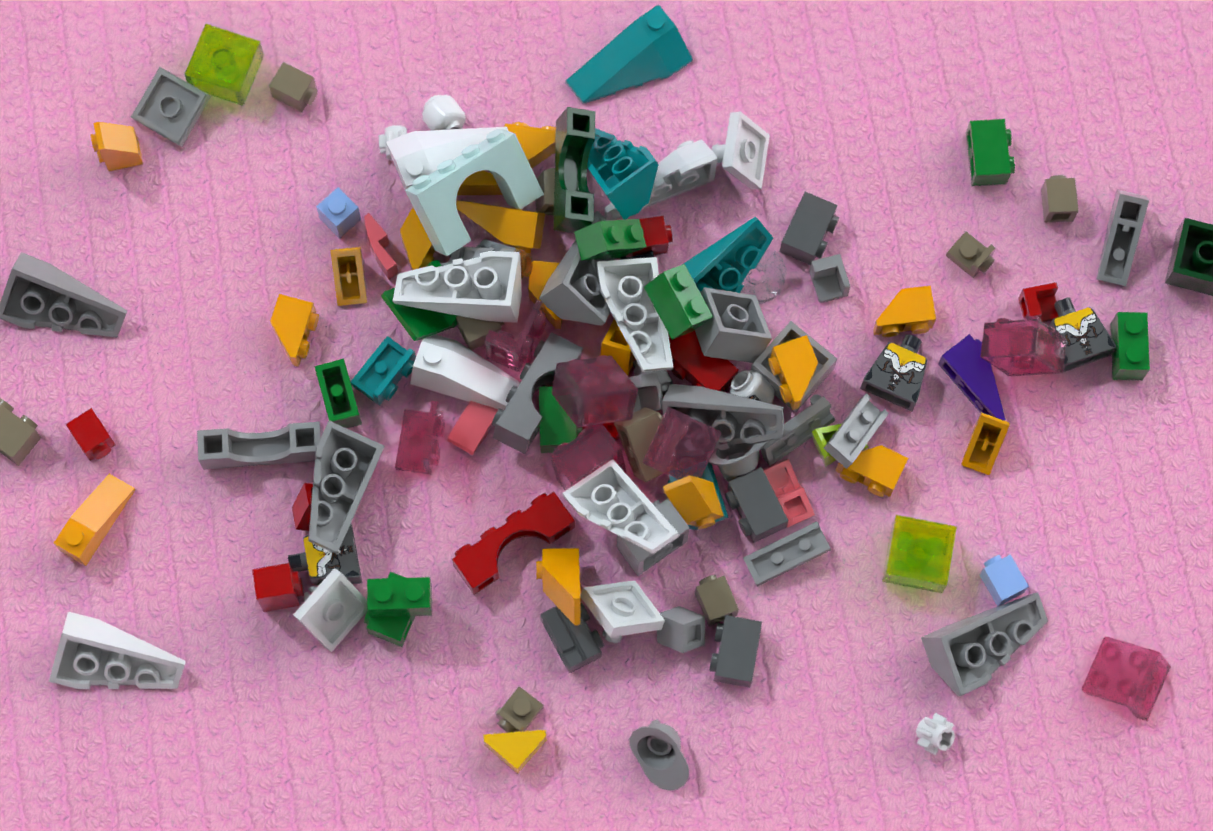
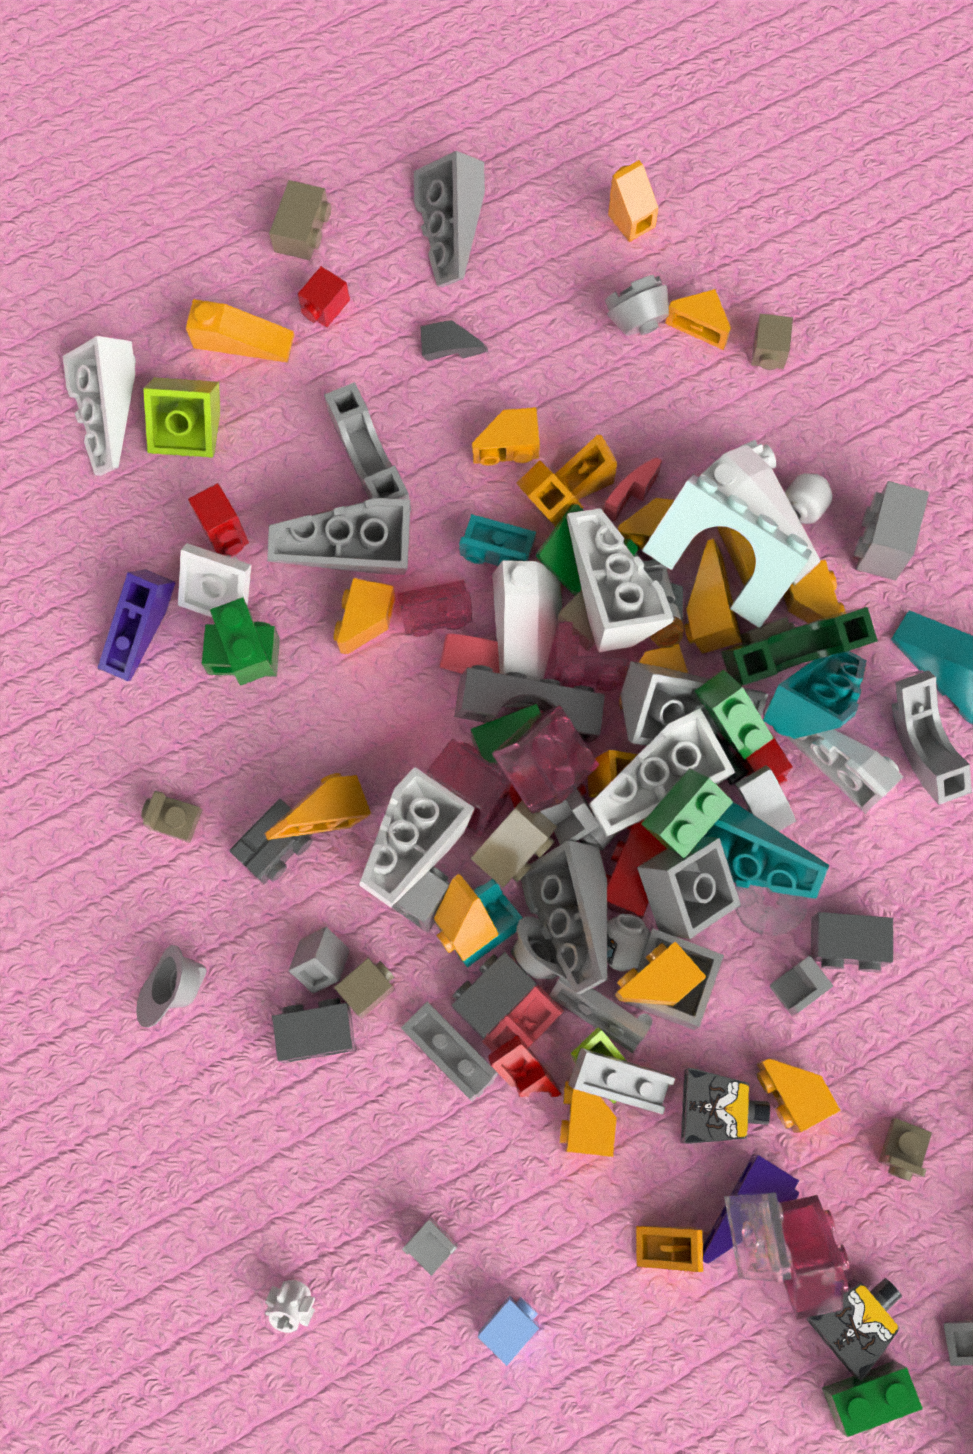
camera: 75 degrees right, 0 degrees up
(156, 592) = (182, 416): none -> lime slope
(170, 106) = (698, 239): light grey plate -> none
(177, 345) = (447, 339): none -> dark grey slope
(219, 177) = (639, 306): none -> light grey cone
(224, 64) = (766, 268): clear neon green brick -> none
(247, 132) = (701, 317): none -> light orange slope
(322, 561) = (272, 579): torso -> none
(336, 690) = (135, 622): none -> dark purple slope
(338, 212) = (652, 434): light blue brick -> none
(338, 393) = (449, 505): green brick -> none
(356, 314) = (547, 492): none -> light orange slope
(402, 495) = (366, 614): none -> light orange slope
(501, 65) = (891, 530): none -> light grey brick
(515, 747) = (125, 825): yellow slope -> none
(543, 520) = (320, 718): red arch -> none
(622, 609) = (313, 884): white tile -> none
(679, 112) = (924, 741): none -> light grey arch
(680, 244) = (766, 798): none -> slope
(681, 445) = (520, 881): clear pink bracket -> none
(744, 150) = (912, 830): white tile -> none
(820, 503) = (522, 1069): none -> red slope
(919, 554) = (500, 1212): clear neon green brick -> none
(925, 616) = (430, 1246): none -> light grey panel
(977, 646) = (415, 1322): light grey wedge -> none
(999, 372) = (758, 1236): none -> clear plate
(1039, 301) = (878, 1258): red panel -> none

